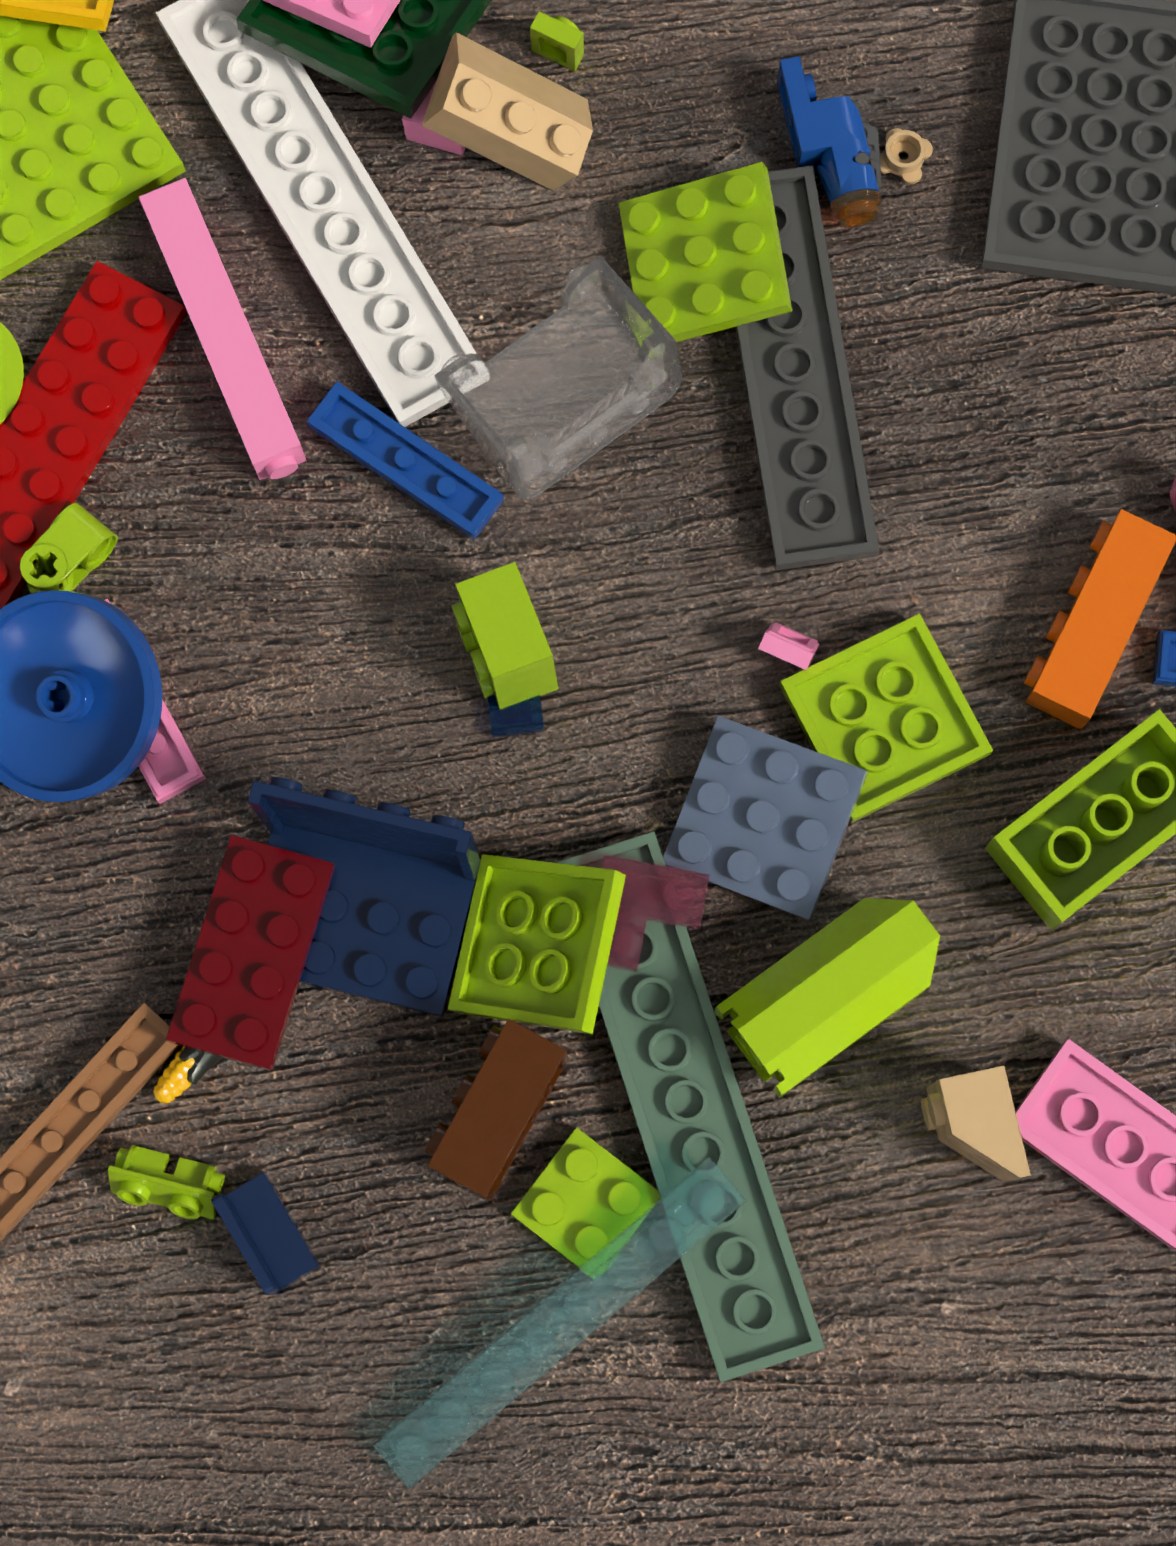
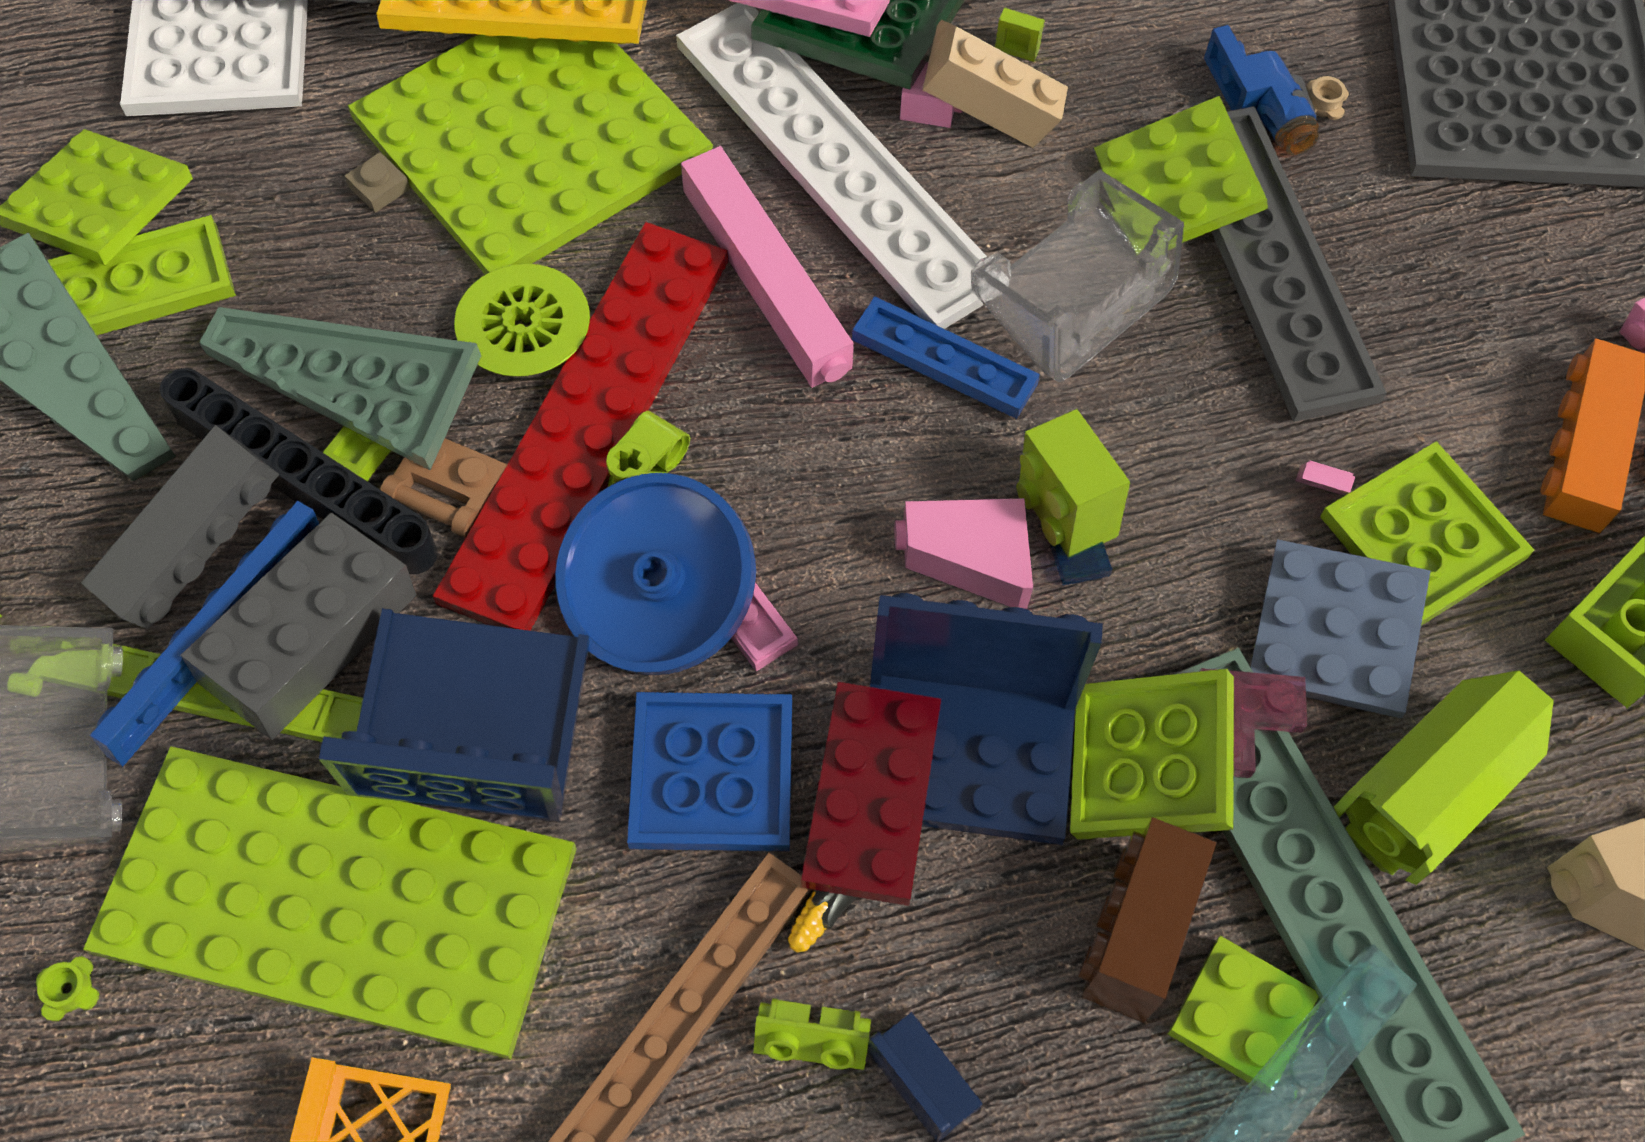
camera: 10 degrees left, 15 degrees down
(98, 910) = (711, 772): none -> blue plate
(395, 688) = (970, 546): none -> bright pink slope

